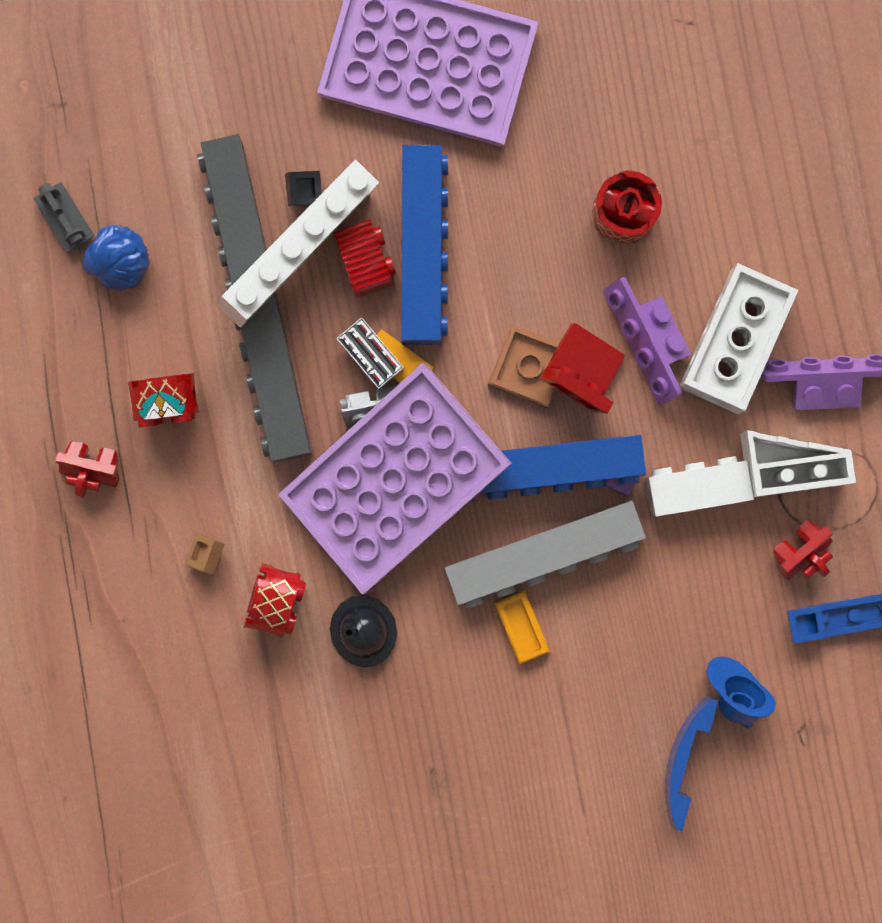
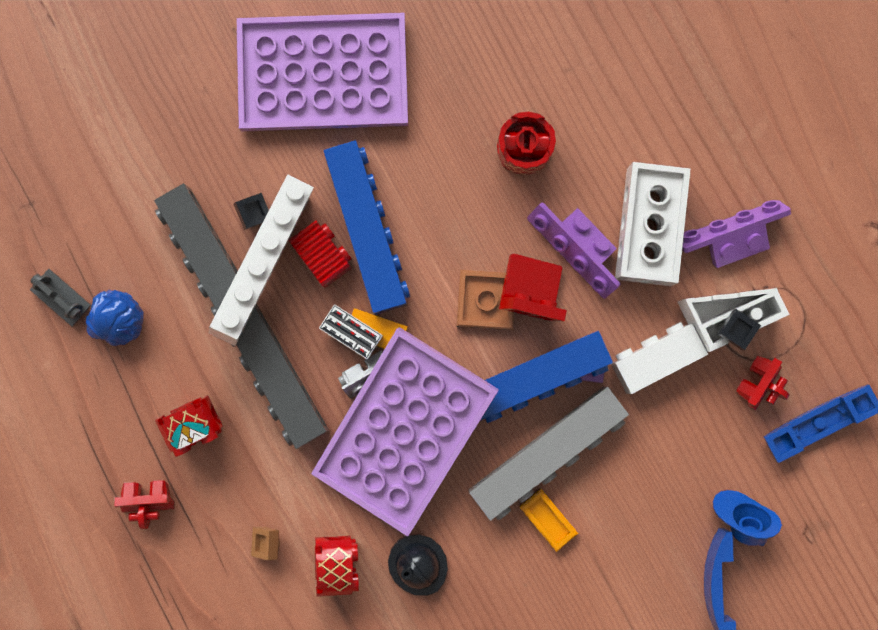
camera: 15 degrees left, 0 degrees up
(794, 481) = (739, 329): none -> black plate

